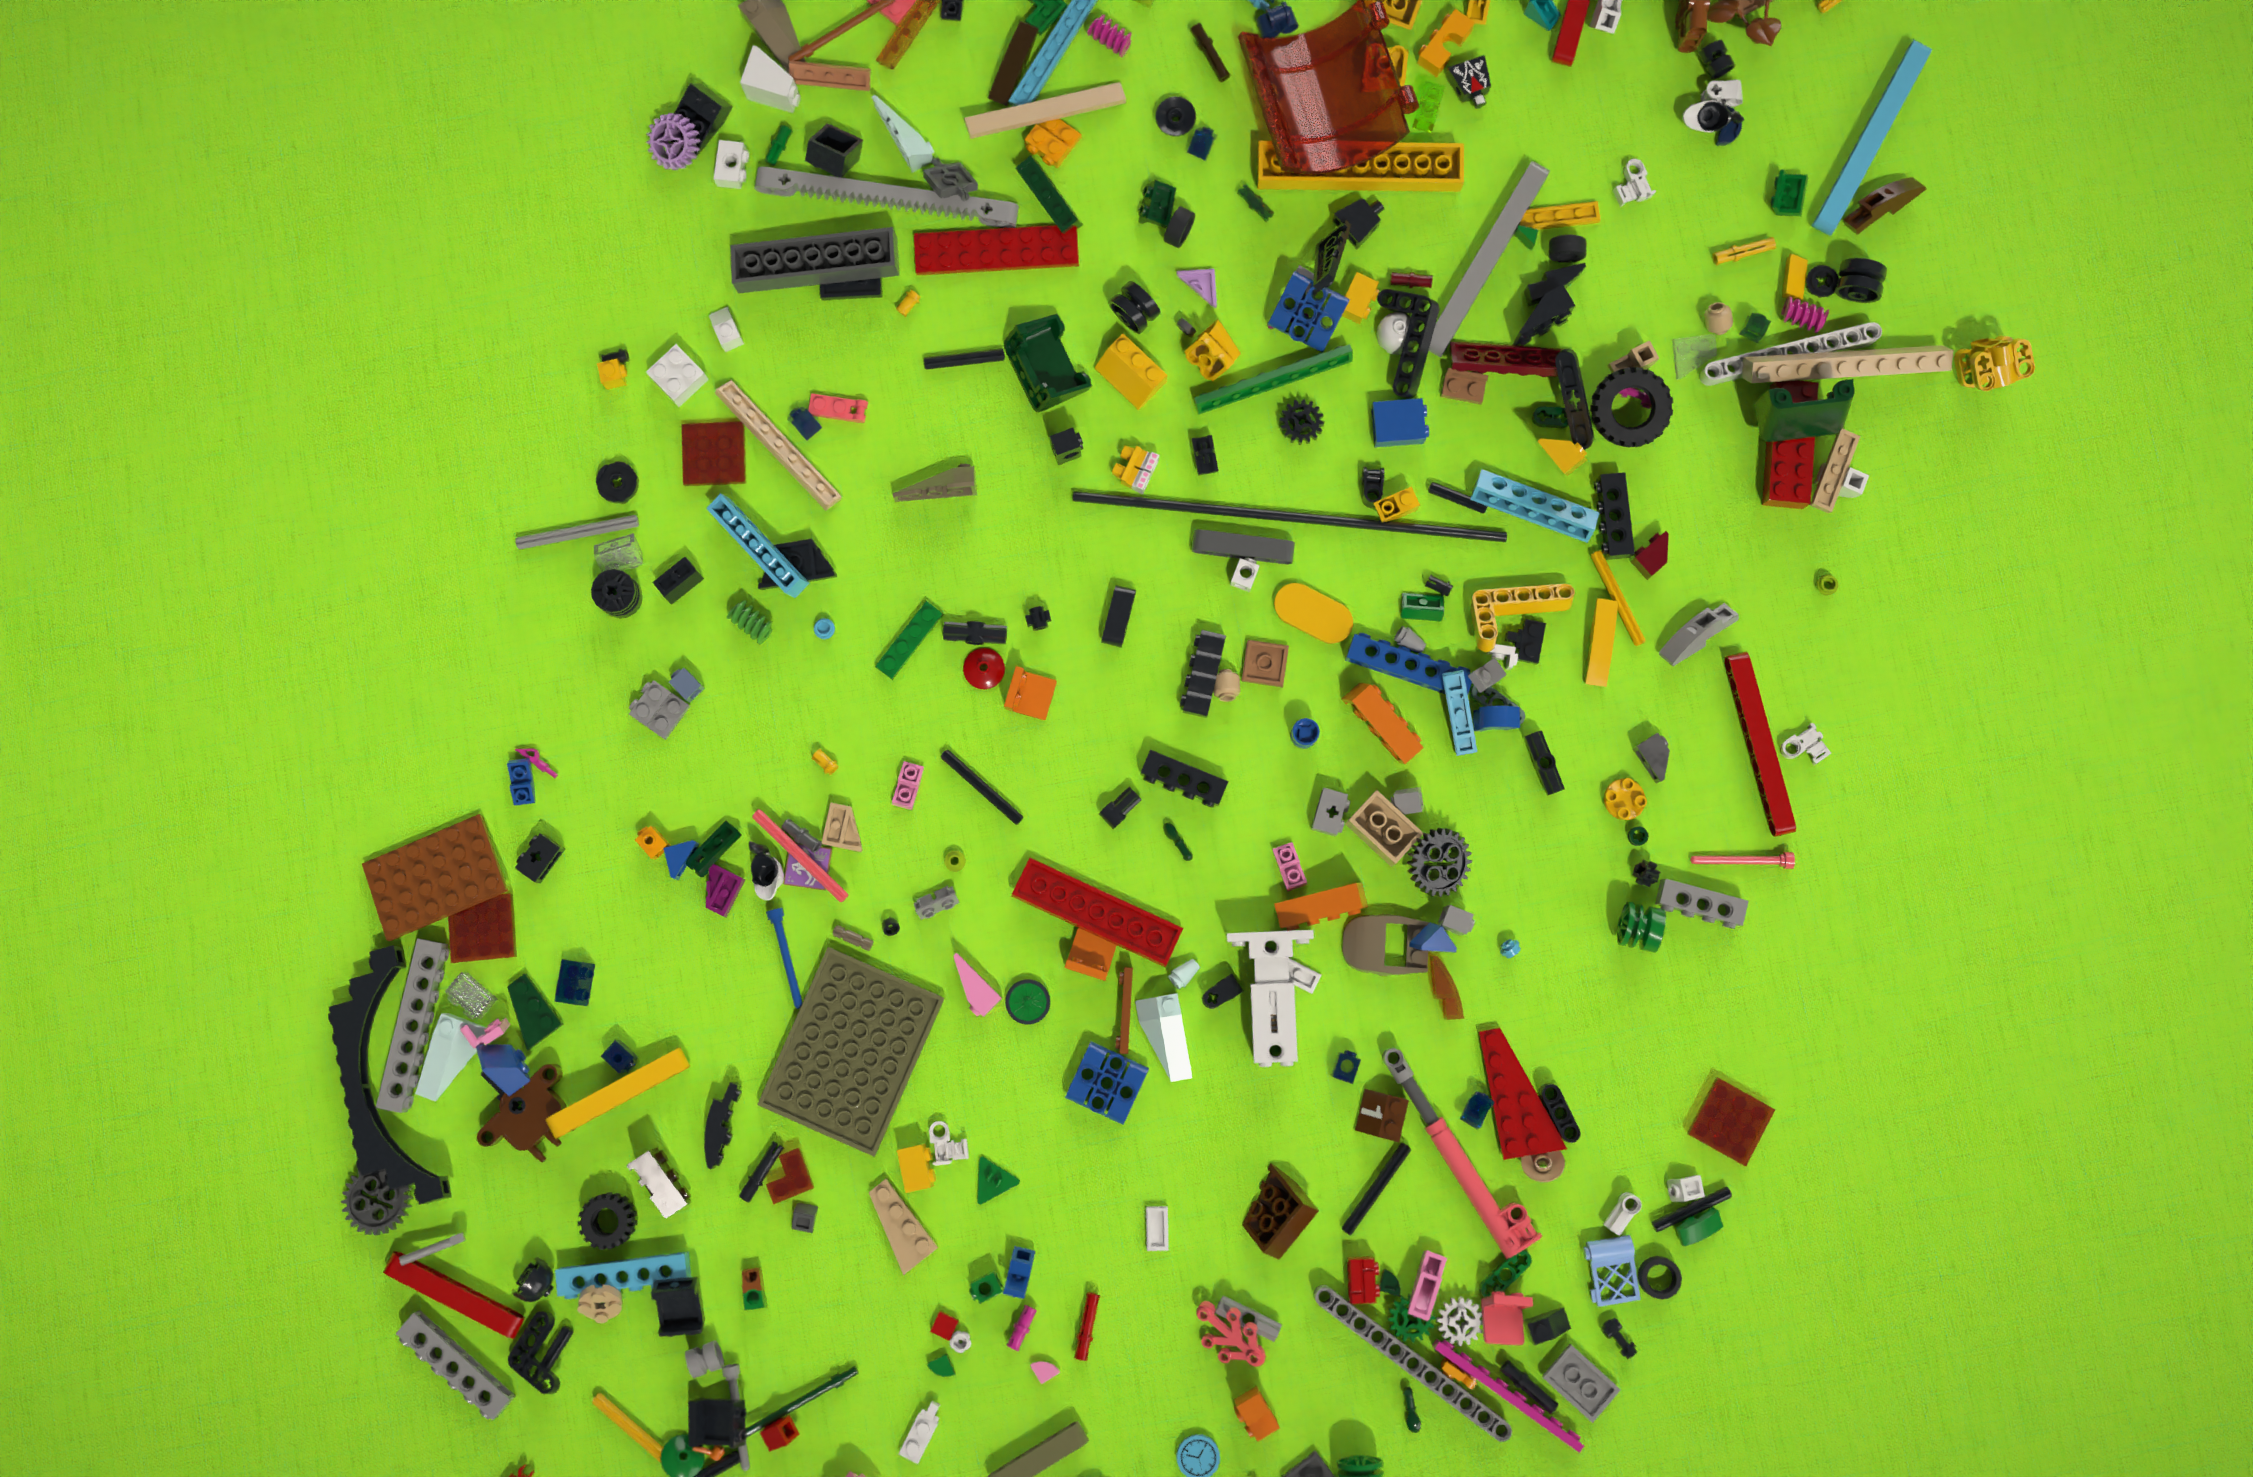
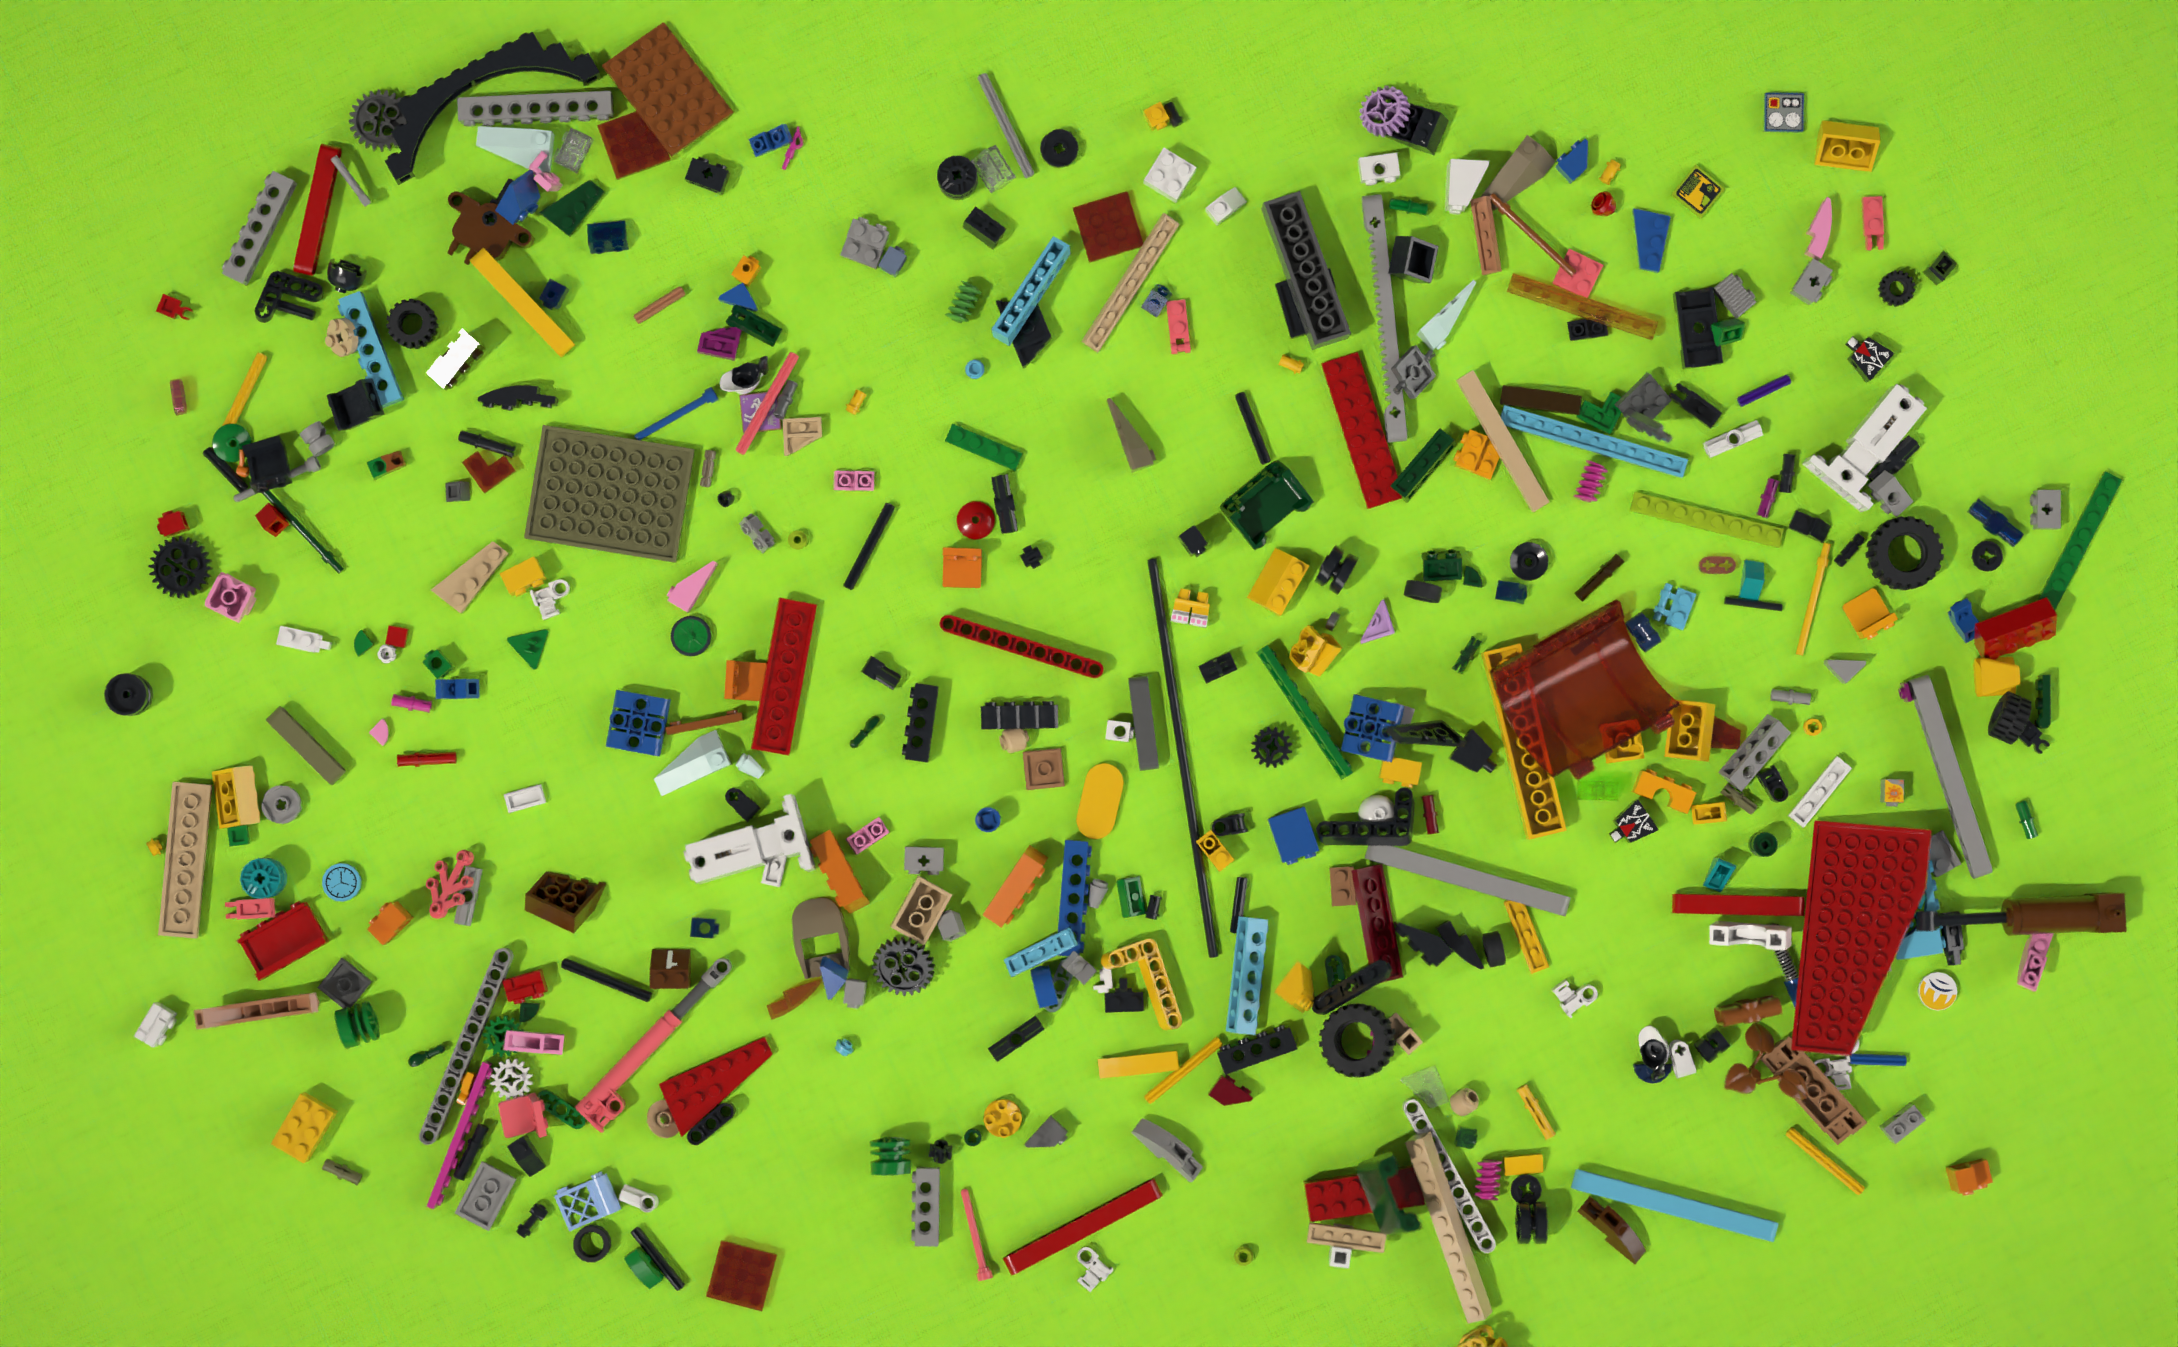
camera: 70 degrees right, 5 degrees up
(663, 945) = (659, 304): none -> nougat axle
(1118, 616) = (1052, 627): black beam -> none
(1131, 642) = (1011, 647): none -> red beam
(1177, 178) = (1472, 578): none -> dark green tile
(1476, 1109) = (695, 1050): bracket -> none
(1526, 236) = (1498, 910): green slope -> none
(1685, 1188) = (673, 1249): white bracket -> none
(1789, 194) = (1600, 1140): green bracket -> none

